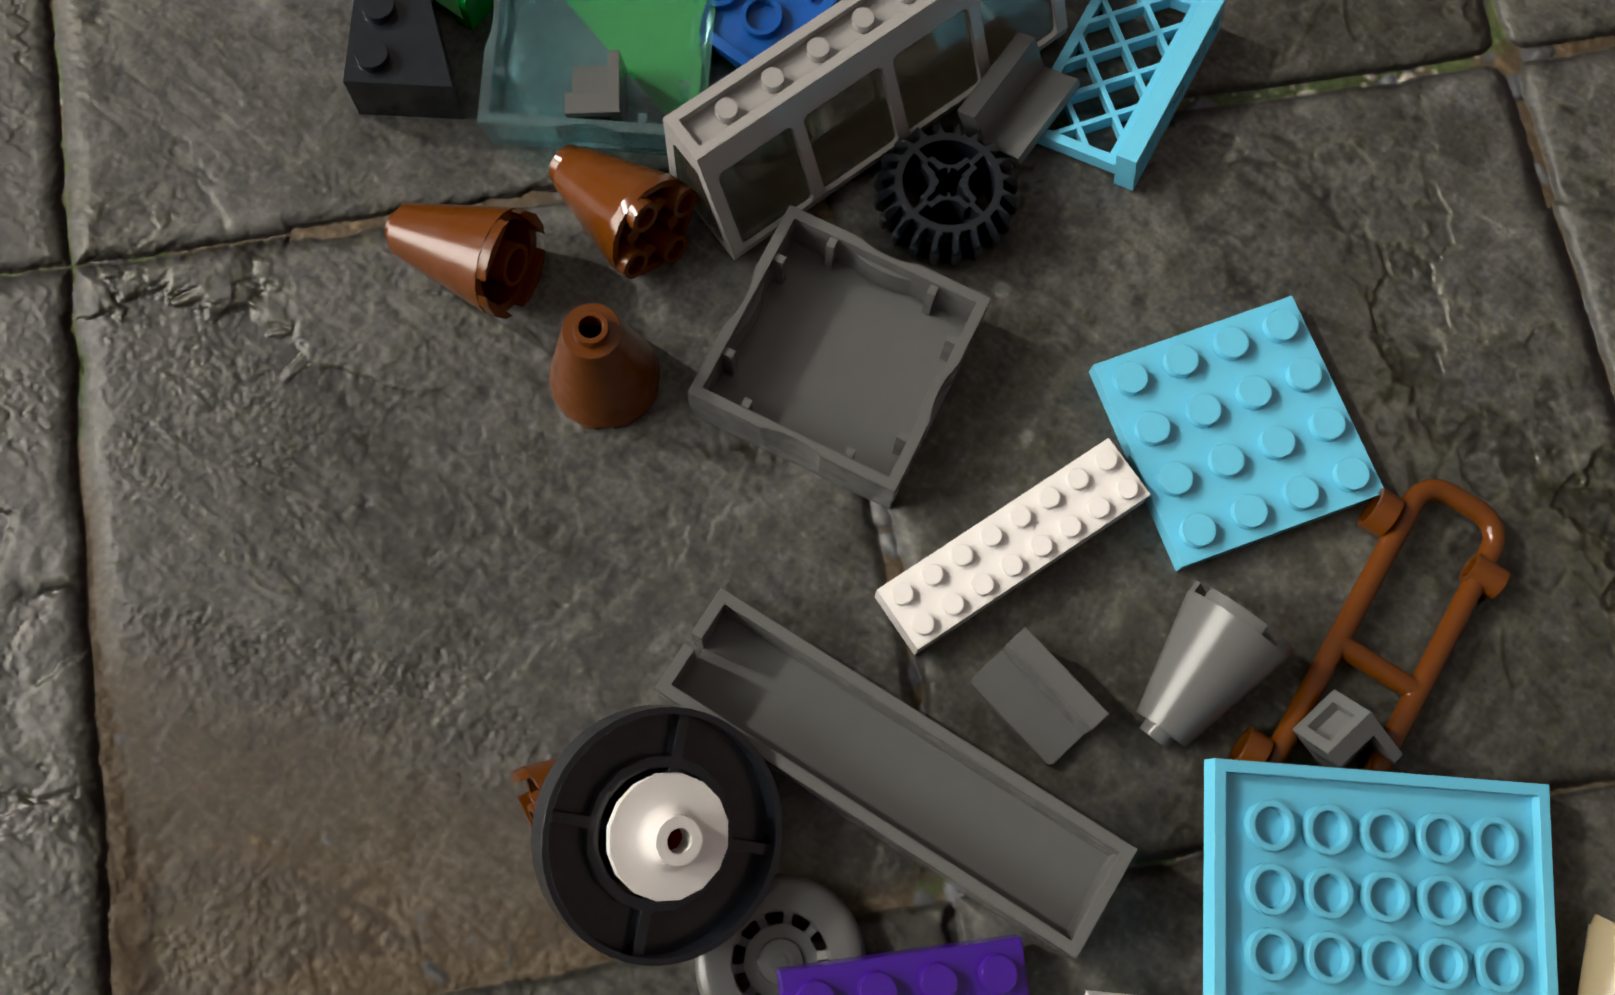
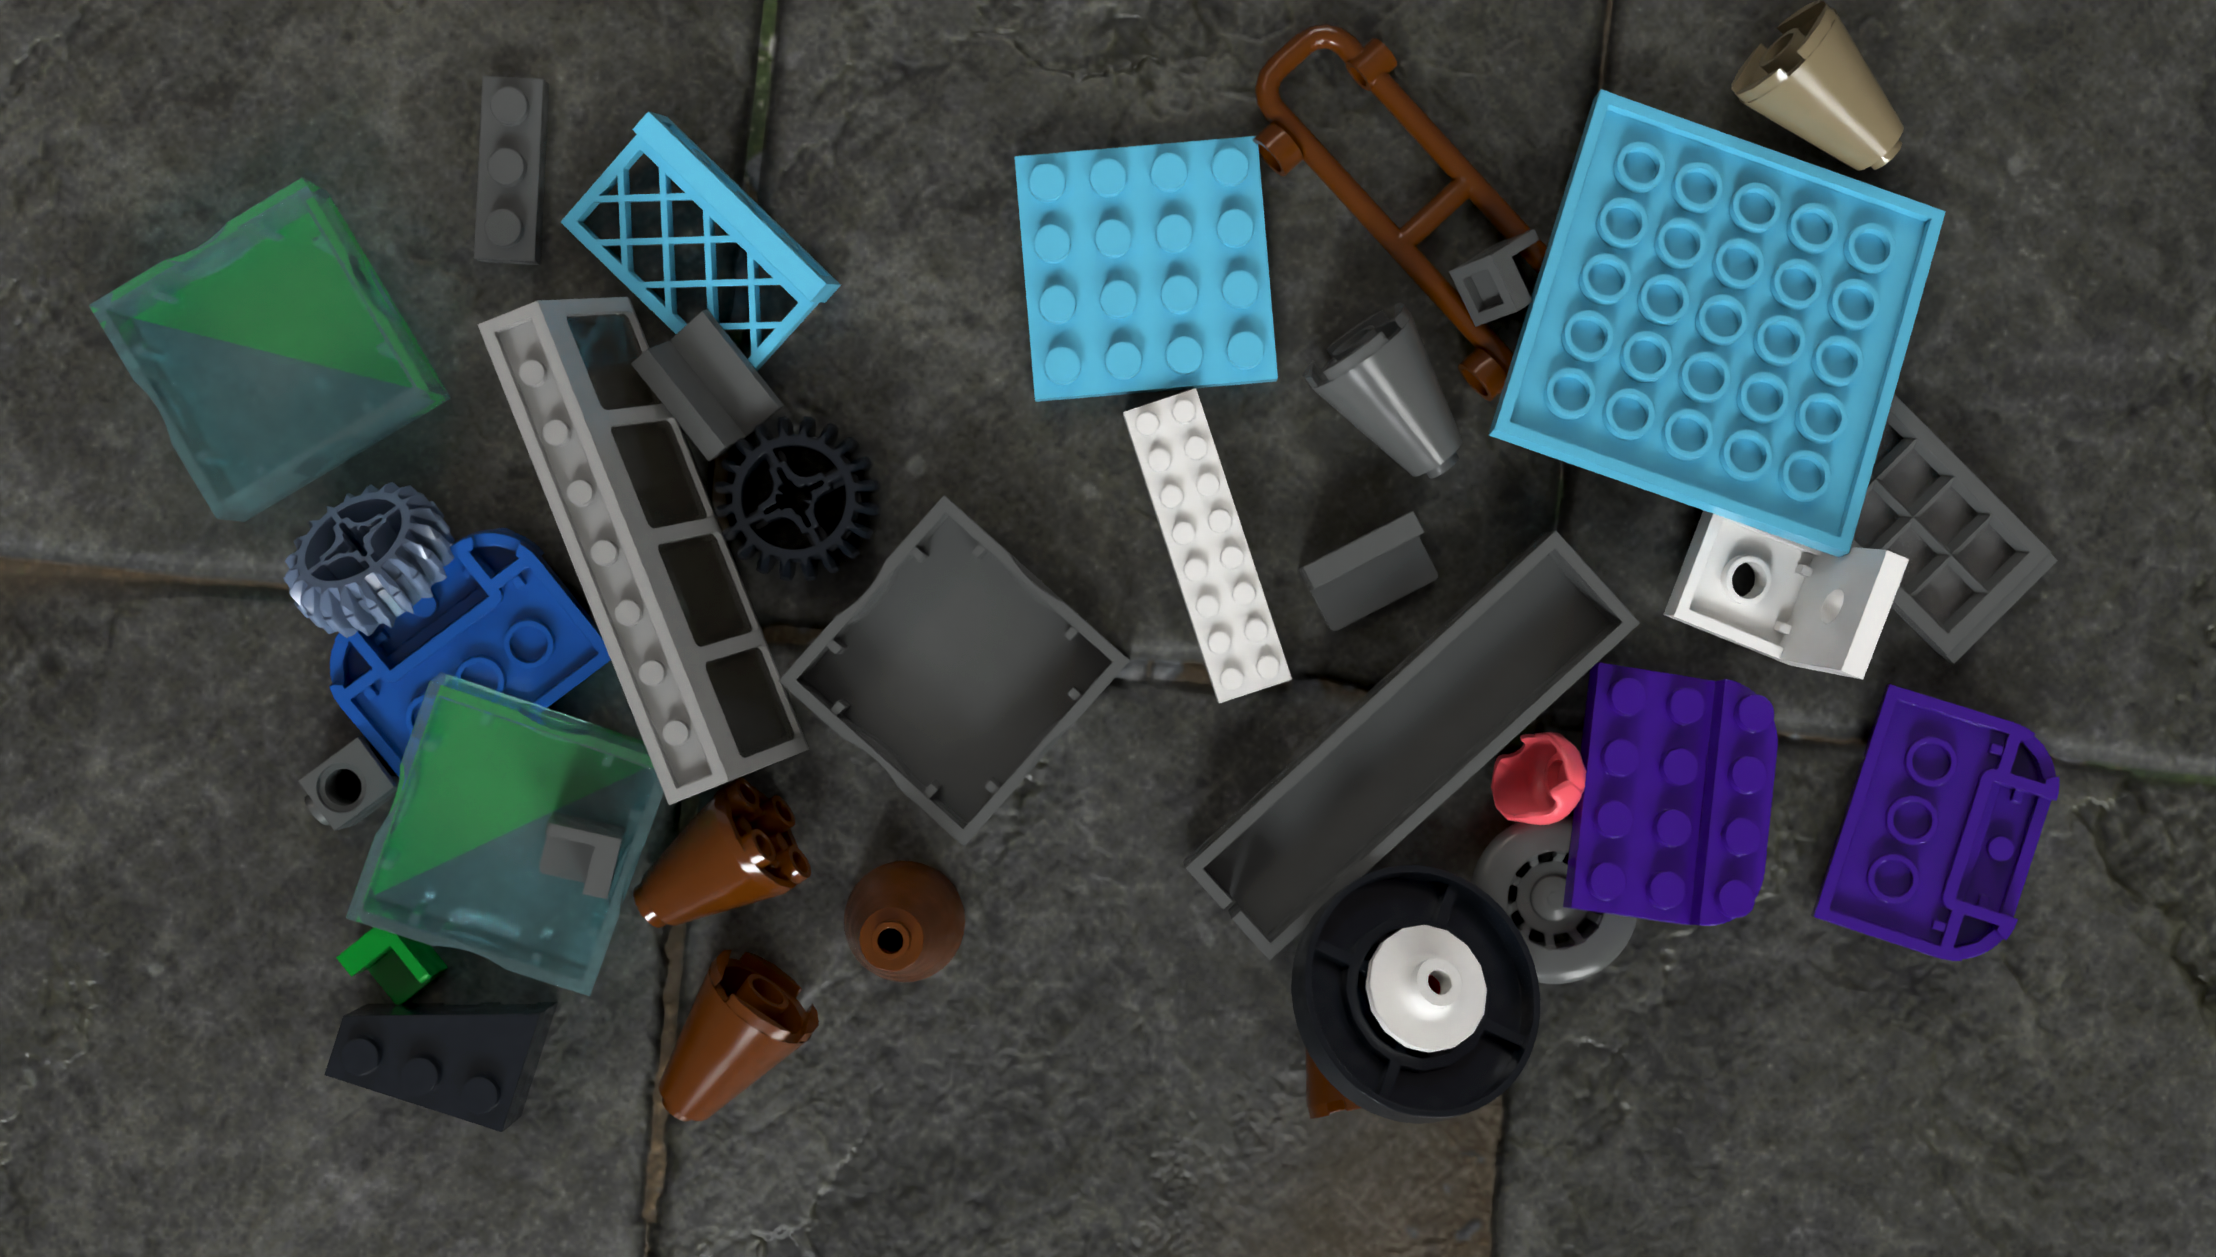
camera: 65 degrees left, 15 degrees up
(890, 912) = (1539, 780): none -> coral hair

